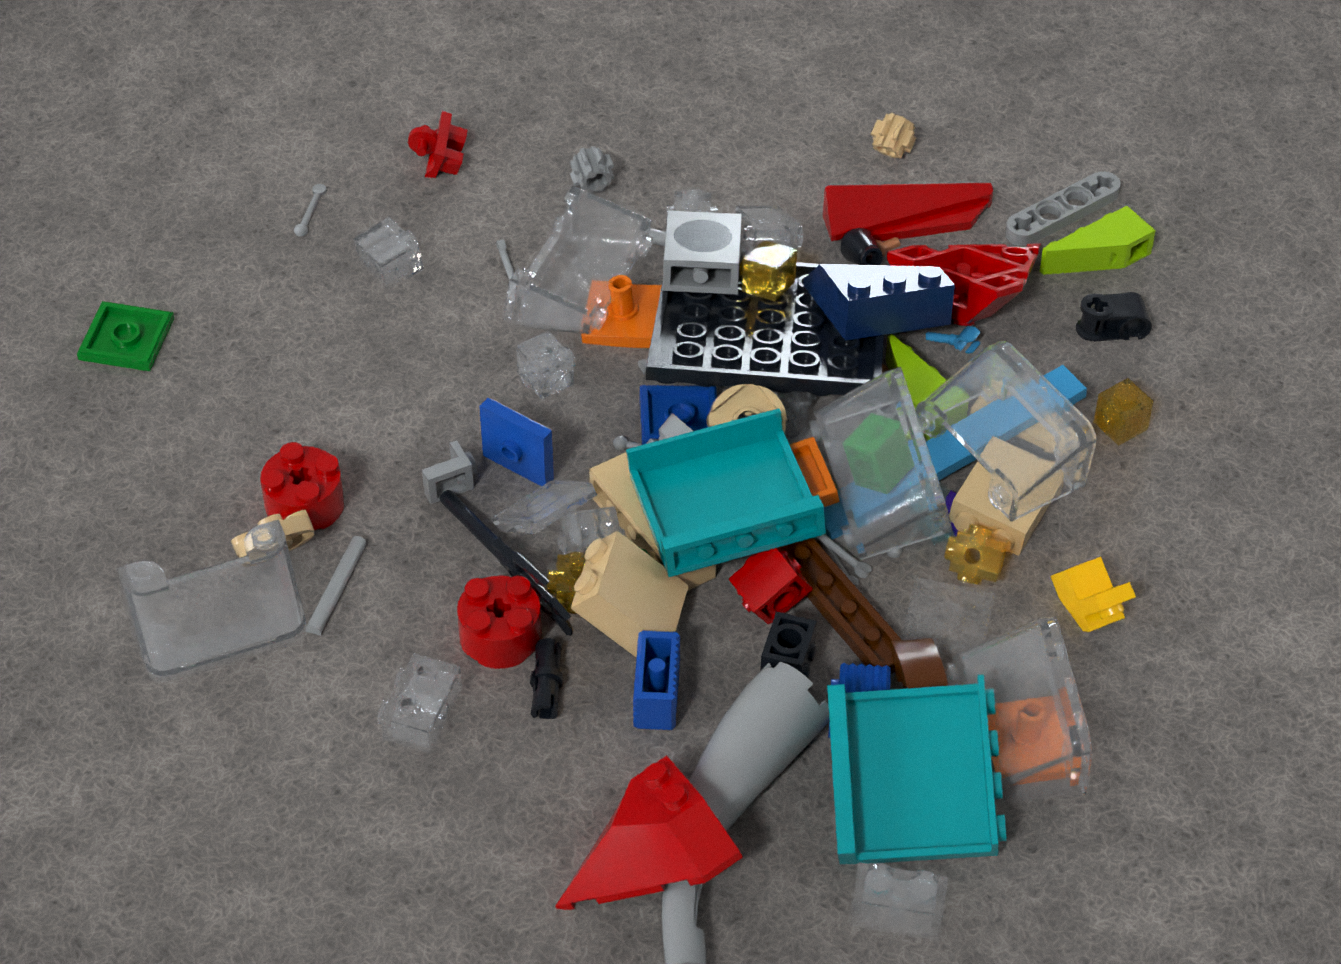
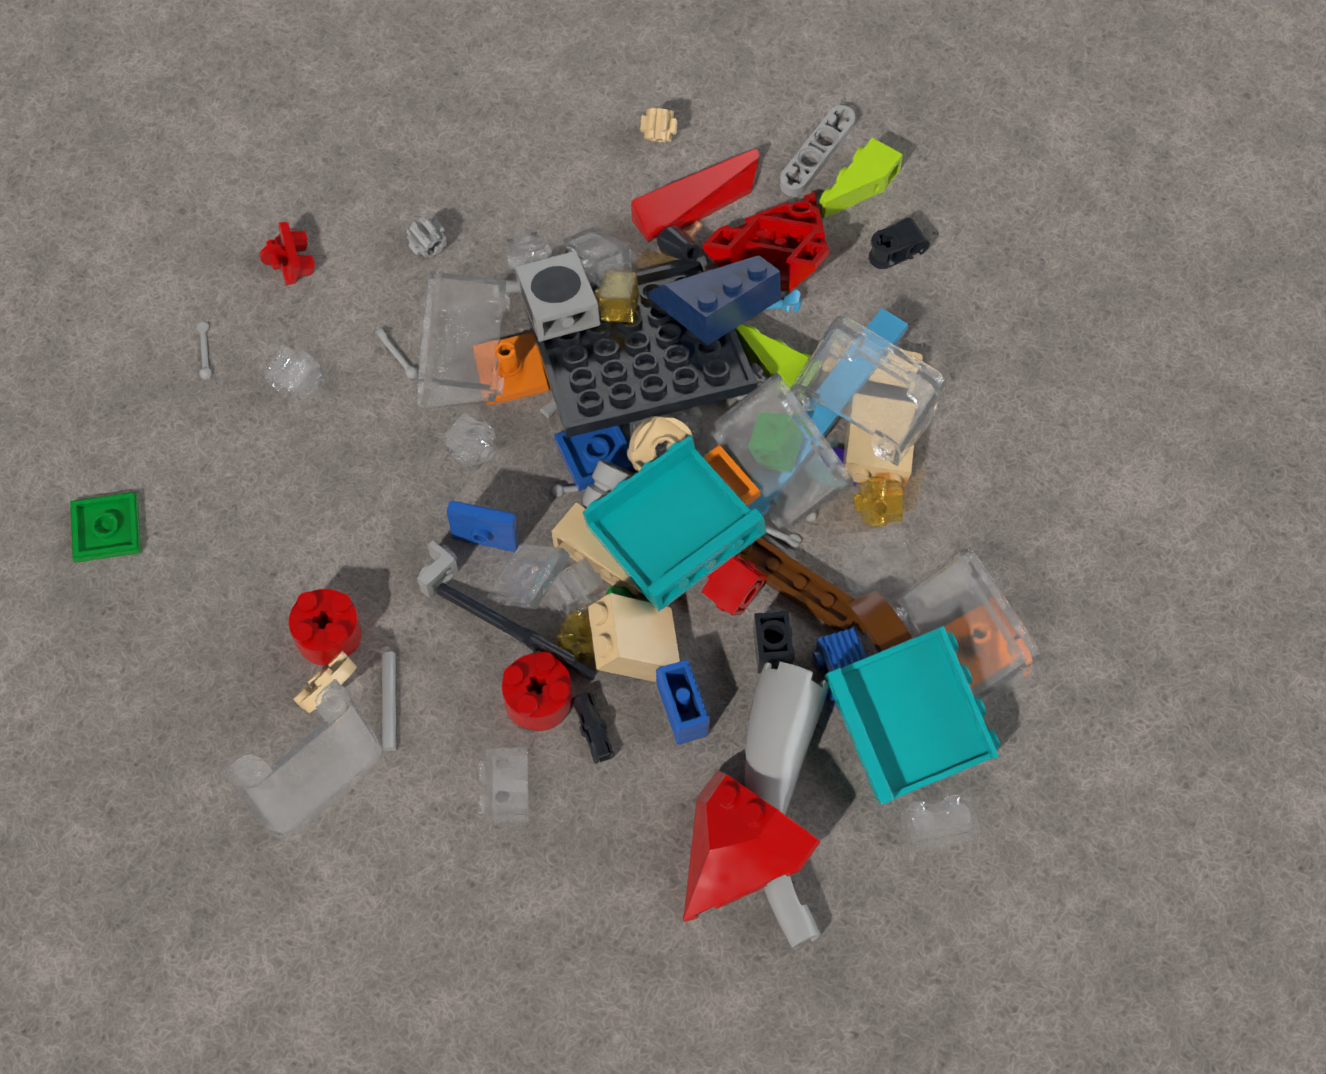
camera: 20 degrees left, 15 degrees up
(1090, 594) = (976, 507): yellow brick -> none
(1123, 411) = (938, 331): clear yellow brick -> none

